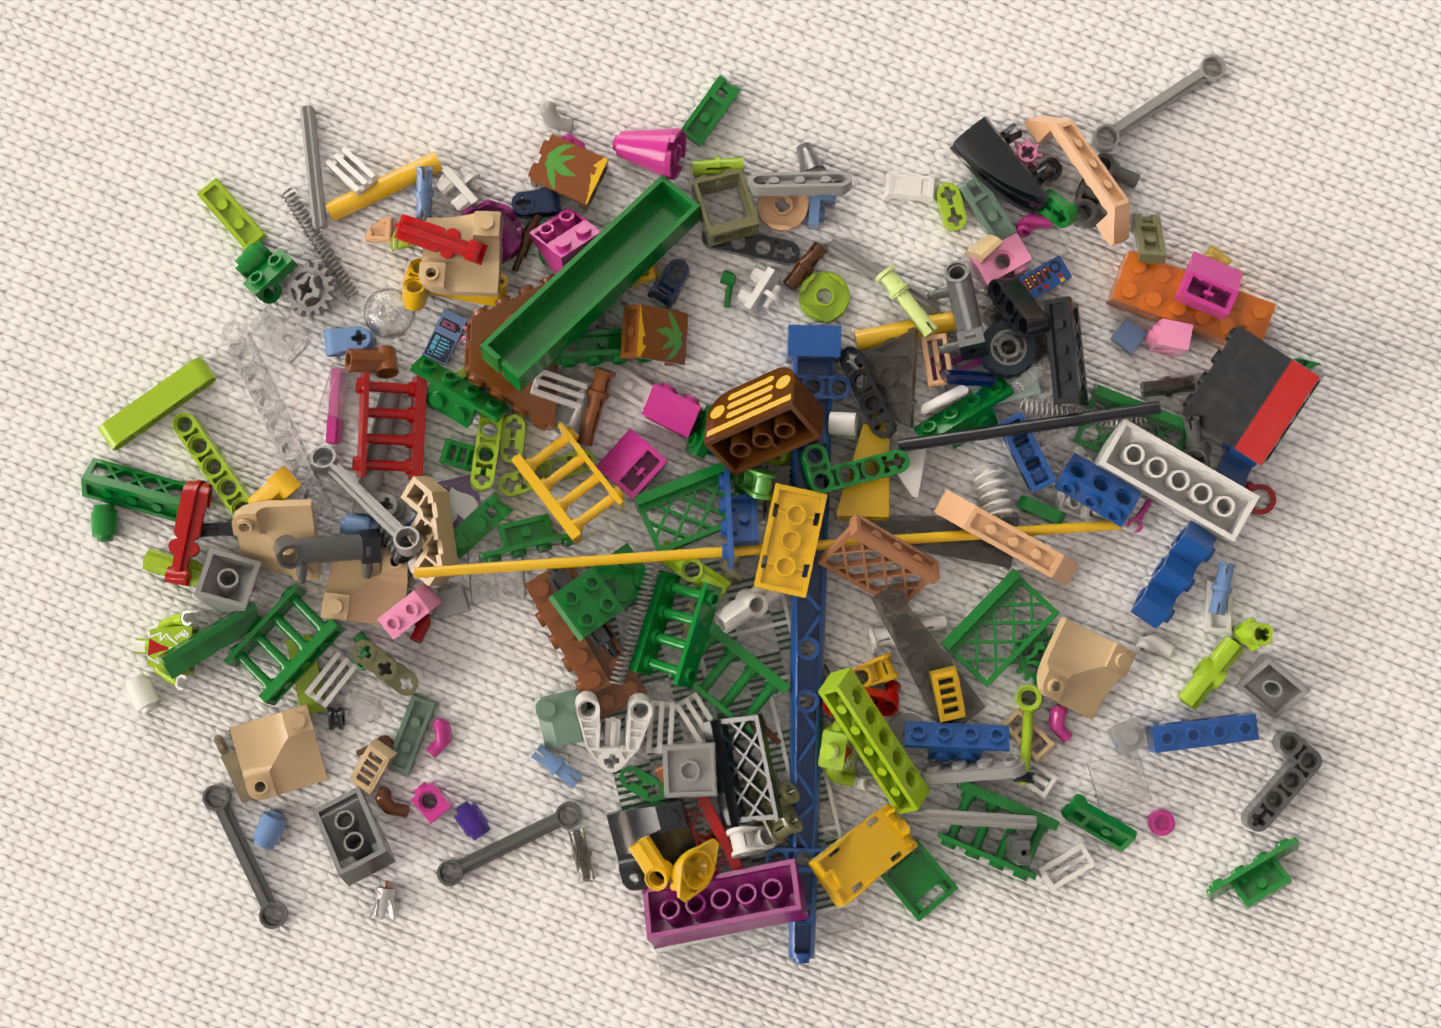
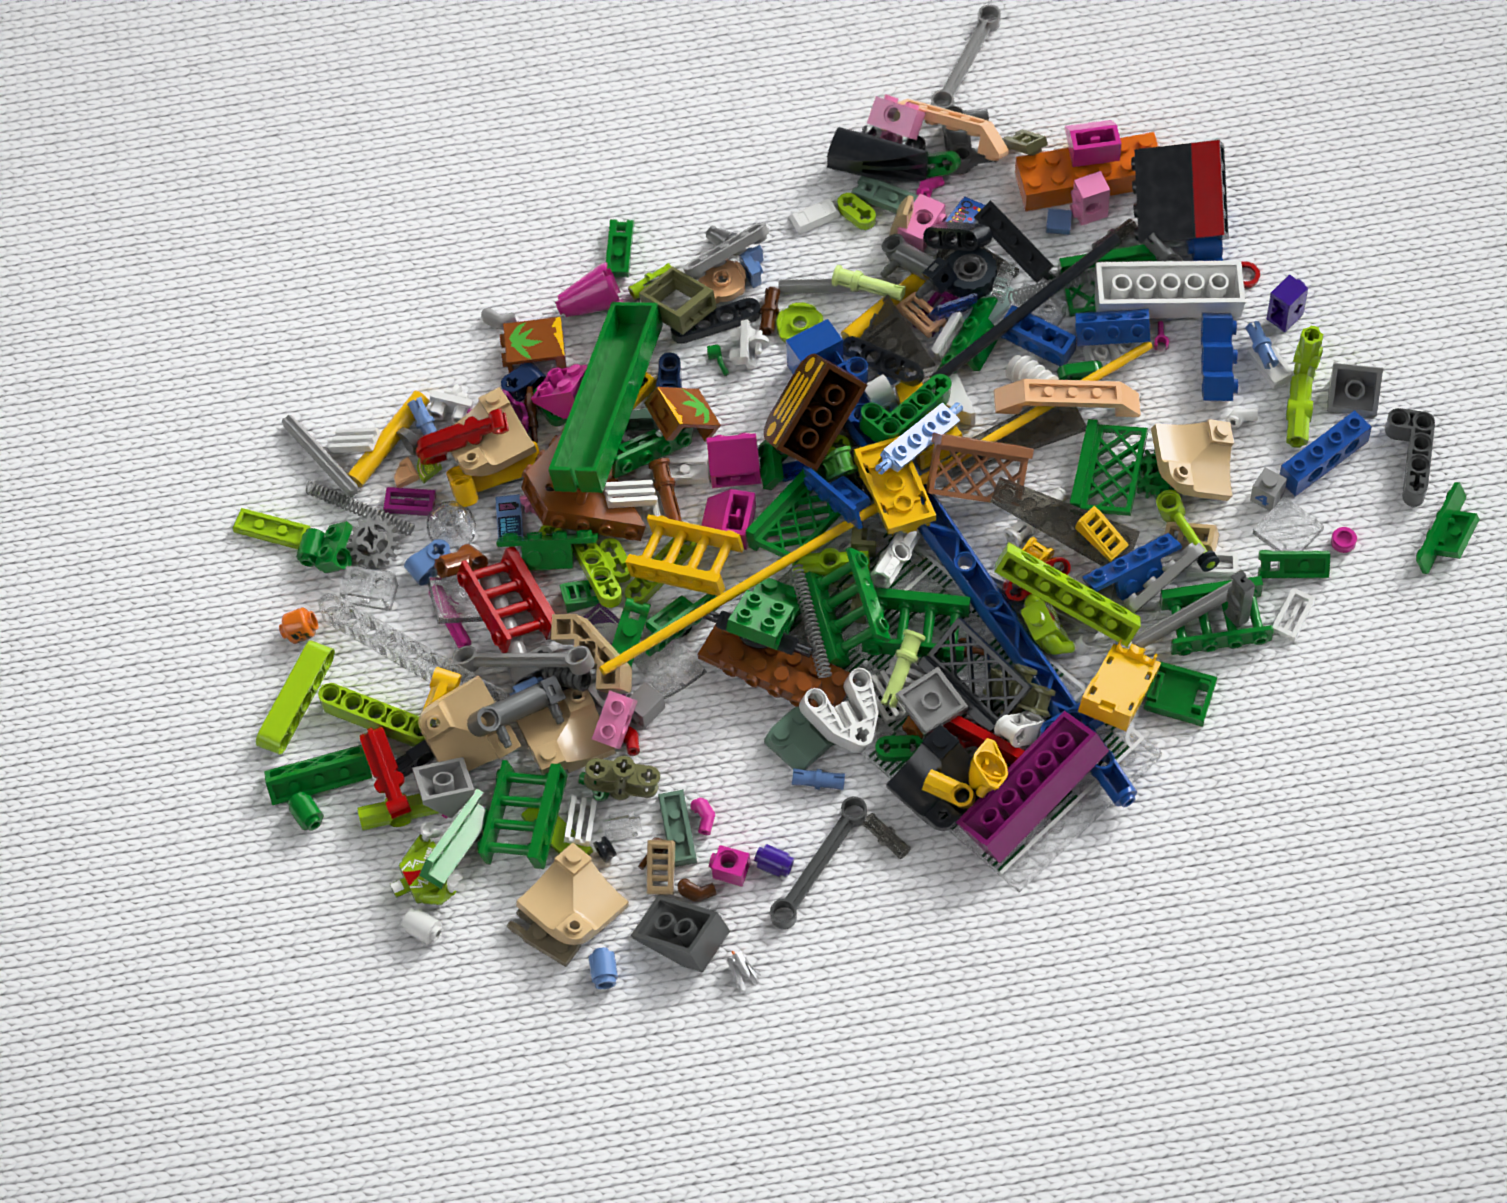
camera: 25 degrees left, 25 degrees down
(198, 333) = (298, 625): none -> orange head
(245, 856) = (595, 1005): dark grey piece -> none
(385, 276) = (408, 505): none -> magenta tile
(399, 202) = (409, 440): none -> dark grey tile
(695, 712) = (906, 657): none -> yellowish green pin
(841, 508) = (918, 438): none -> light blue plate
(1031, 137) = (883, 116): none -> bright pink brick
(1056, 722) = (1206, 514): dark pink arm -> none
(1273, 563) = (1287, 303): none -> dark purple brick

